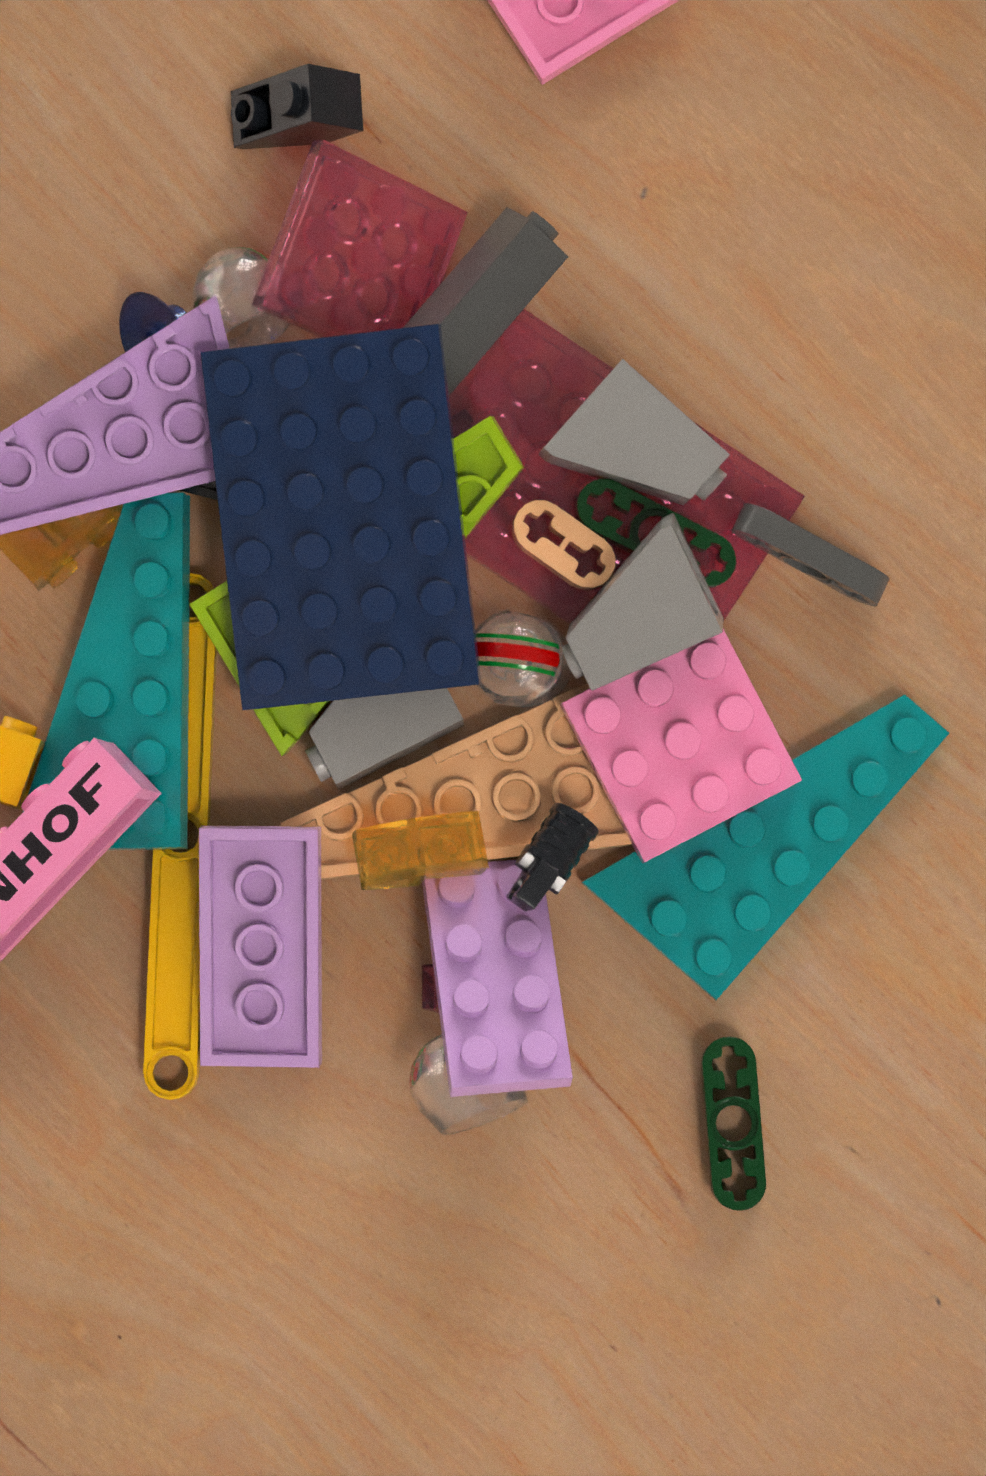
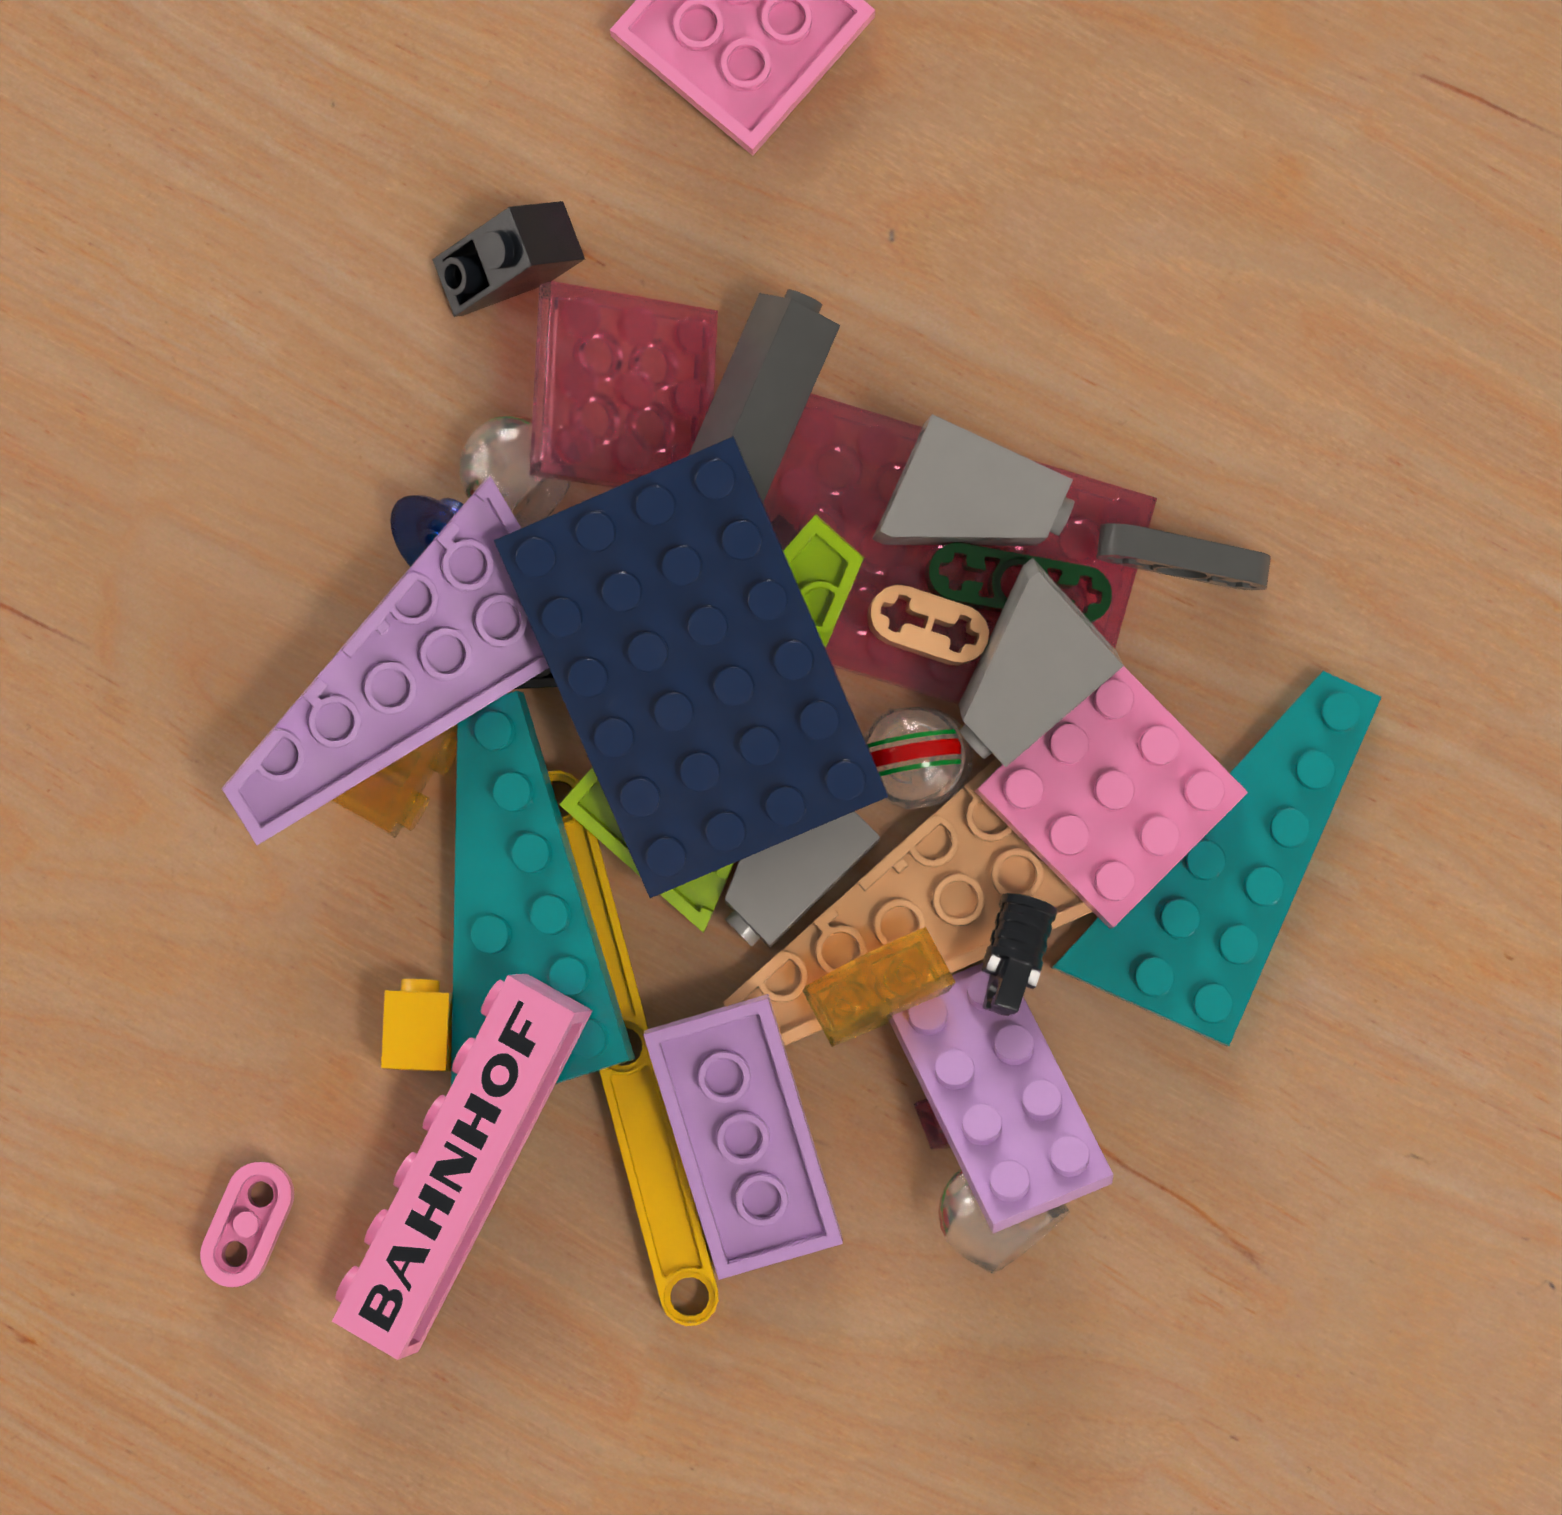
camera: 20 degrees left, 0 degrees up
(750, 1167) = (1289, 1218): dark green beam -> none

